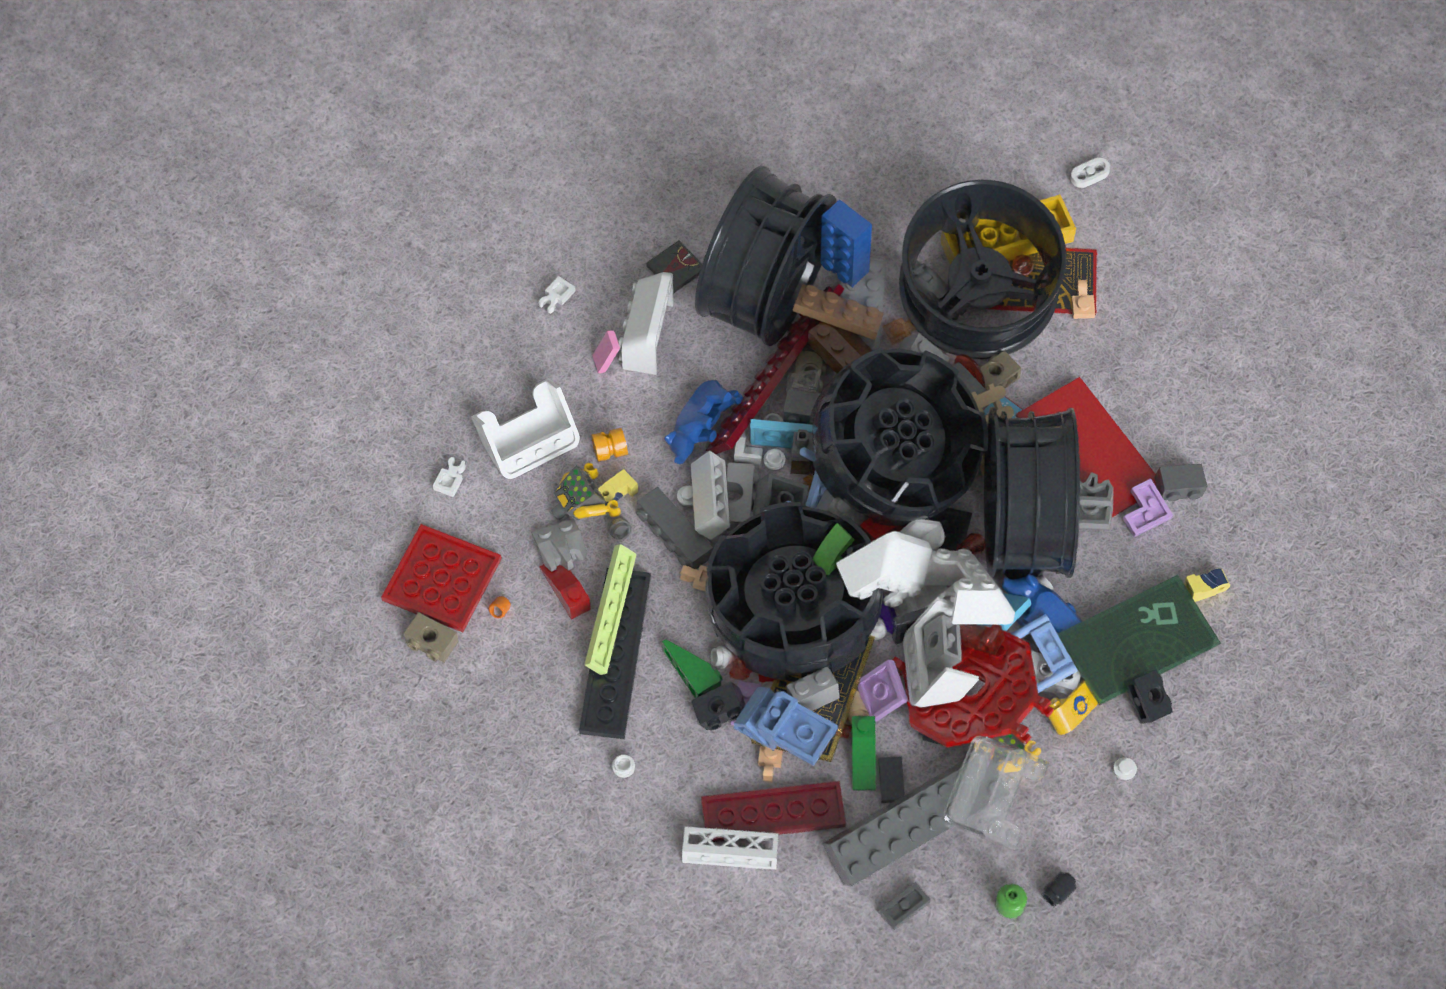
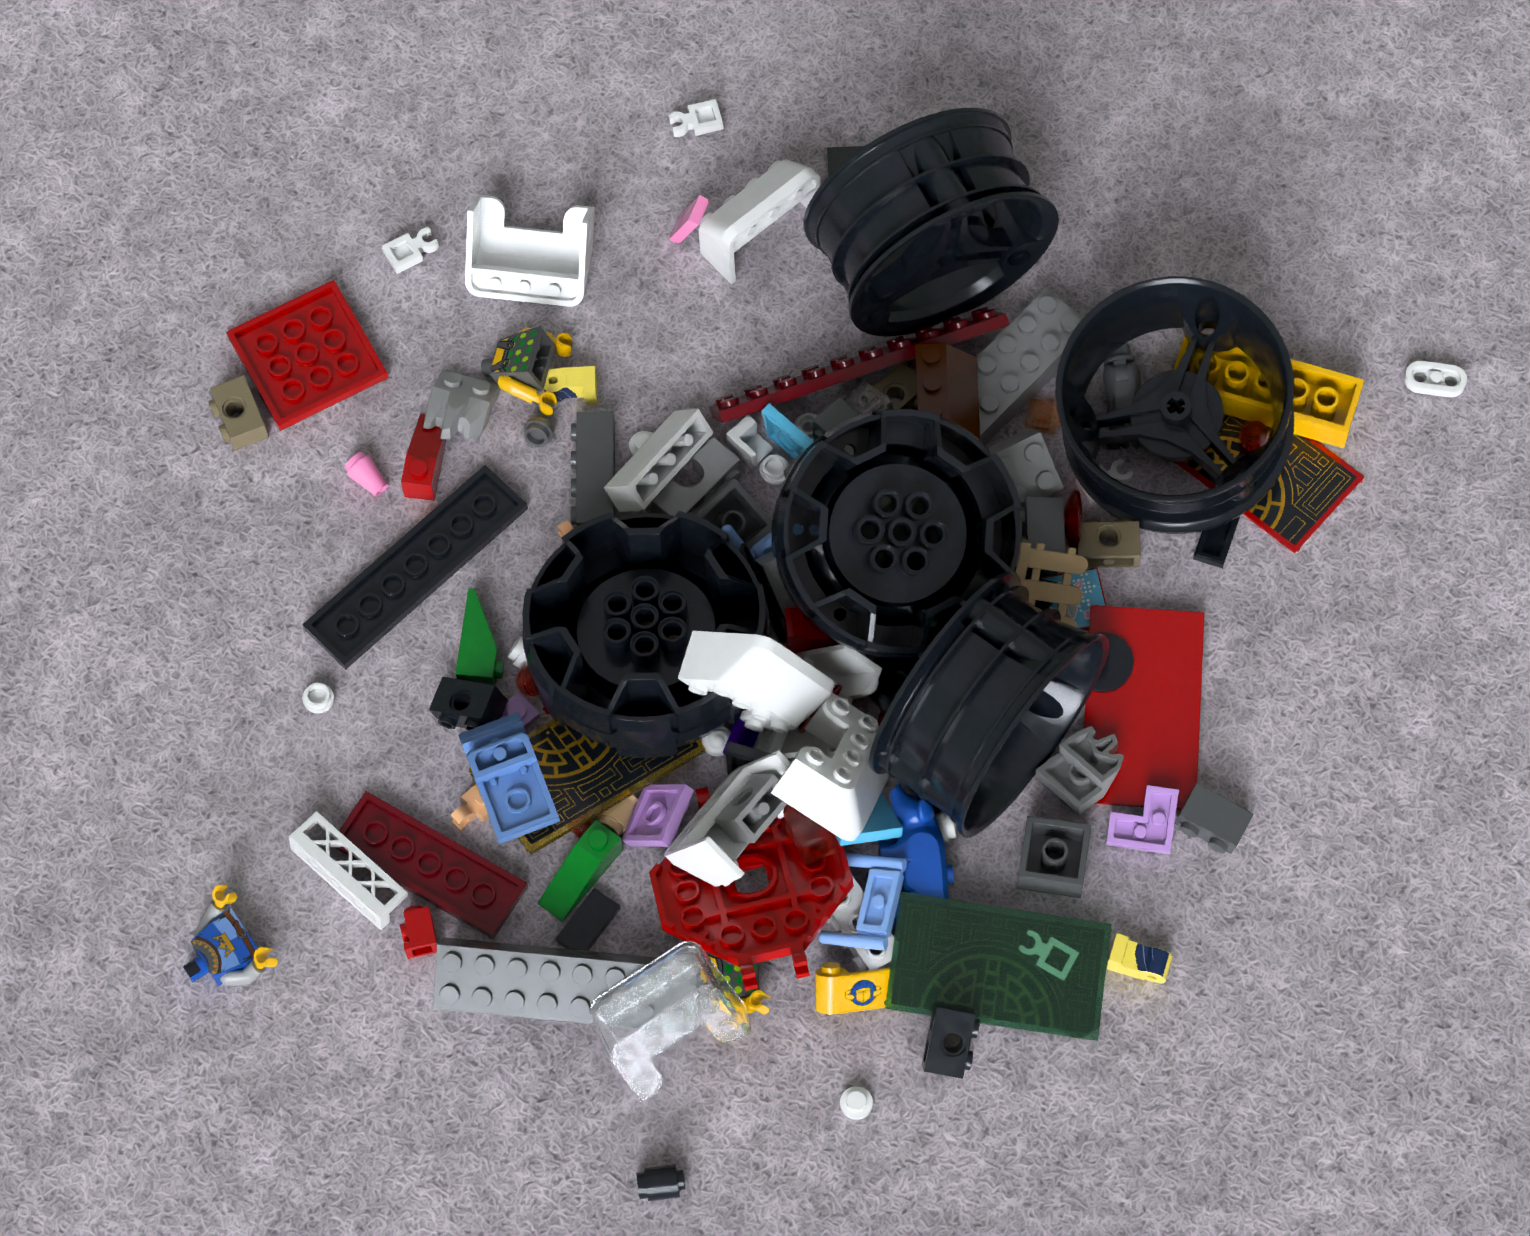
camera: 40 degrees right, 5 degrees up
(502, 603) = (344, 428): orange piece -> none
(539, 621) = (365, 472): none -> bright pink cone
(609, 444) = (603, 327): light orange wheel -> none
(610, 609) = (443, 513): yellowish green plate -> none
(699, 418) = (725, 364): blue animal -> none
(699, 941) = (226, 946): none -> torso
(802, 851) = (418, 932): none -> red brick
(815, 689) = (575, 761): light grey brick -> none
(832, 548) = (719, 609): bright green slope -> none
(838, 311) = (971, 345): medium nougat plate -> none
(845, 243) = (1036, 269): blue piece -> none
(904, 906) = (477, 1074): dark grey plate -> none
(1011, 901) = (597, 1165): bright green head -> none
(1051, 338) = (1215, 544): none -> black tile
(1083, 304) = (1287, 530): light nougat plate -> none
(1116, 560) = (1054, 856): none -> dark grey brick

